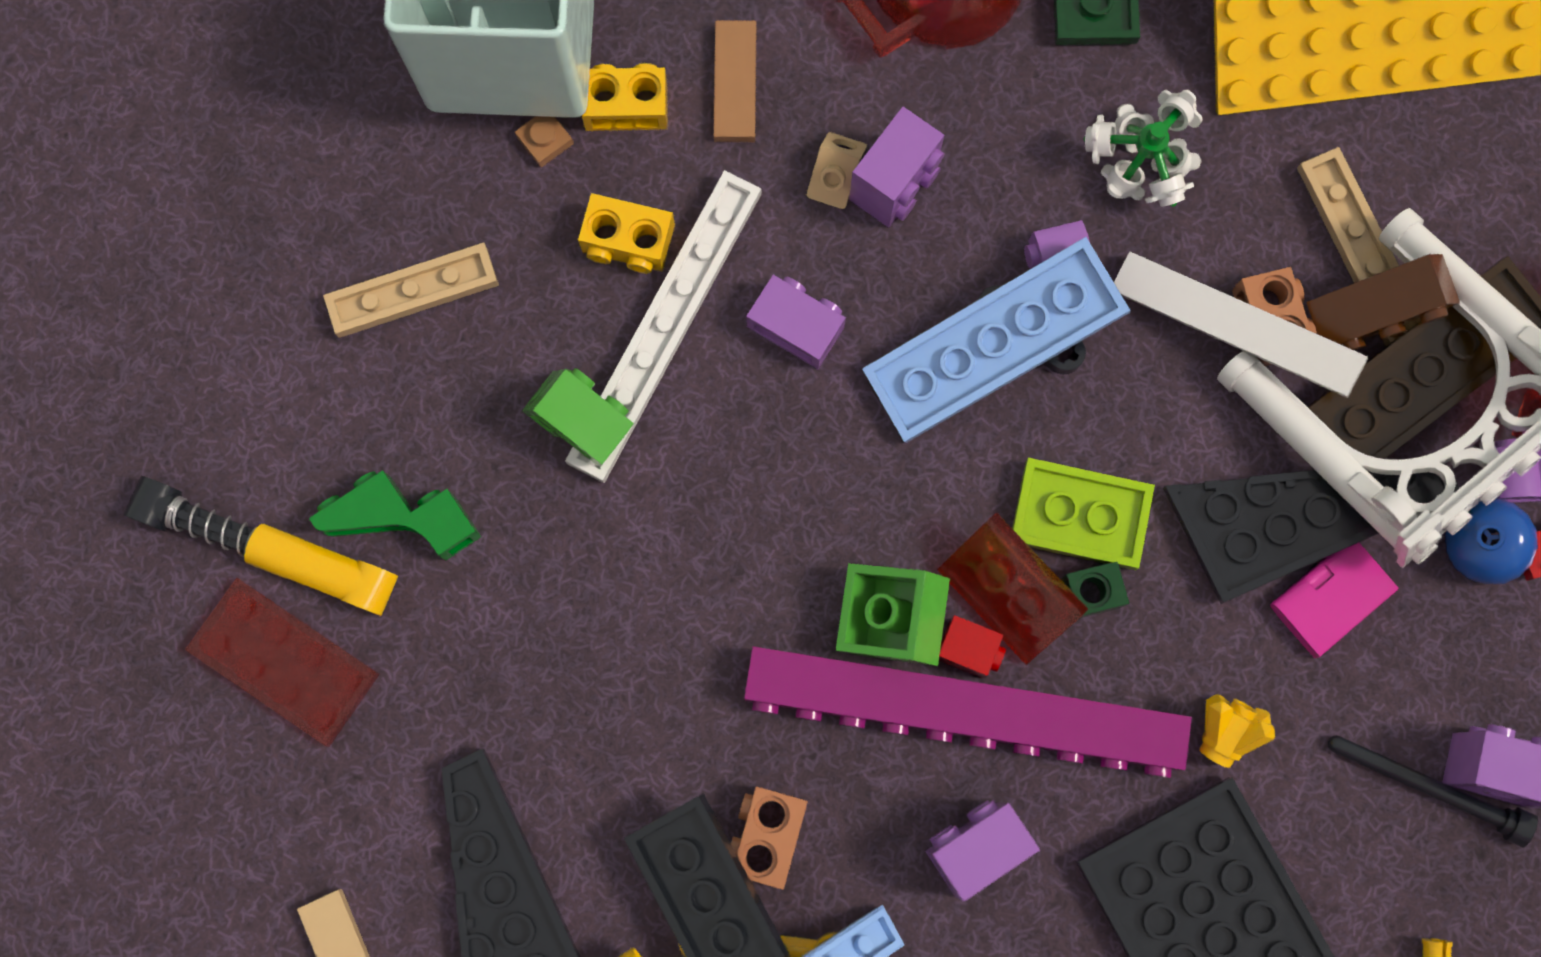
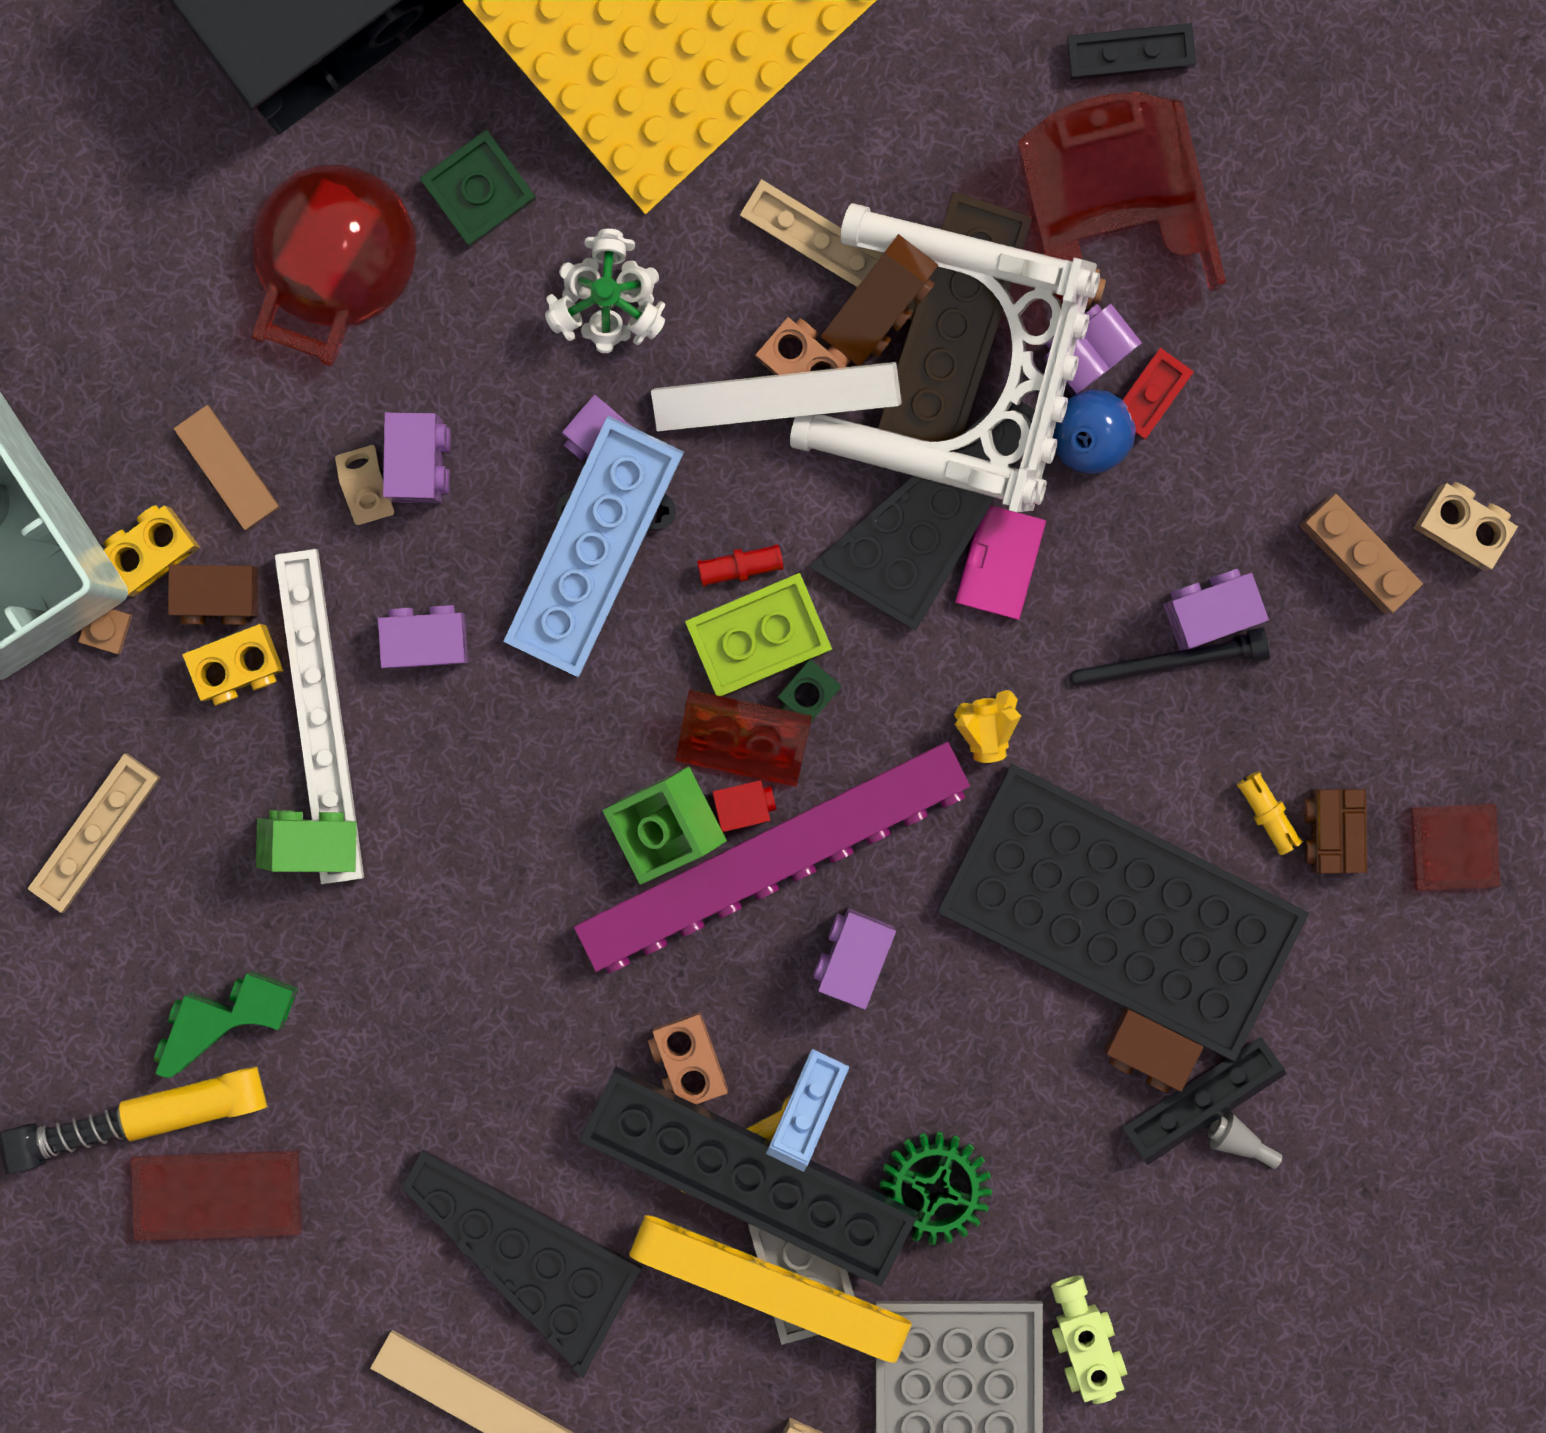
camera: 35 degrees left, 10 degrees up
(652, 166) = (213, 592): none -> reddish brown brick
(1106, 445) = (740, 565): none -> red pin

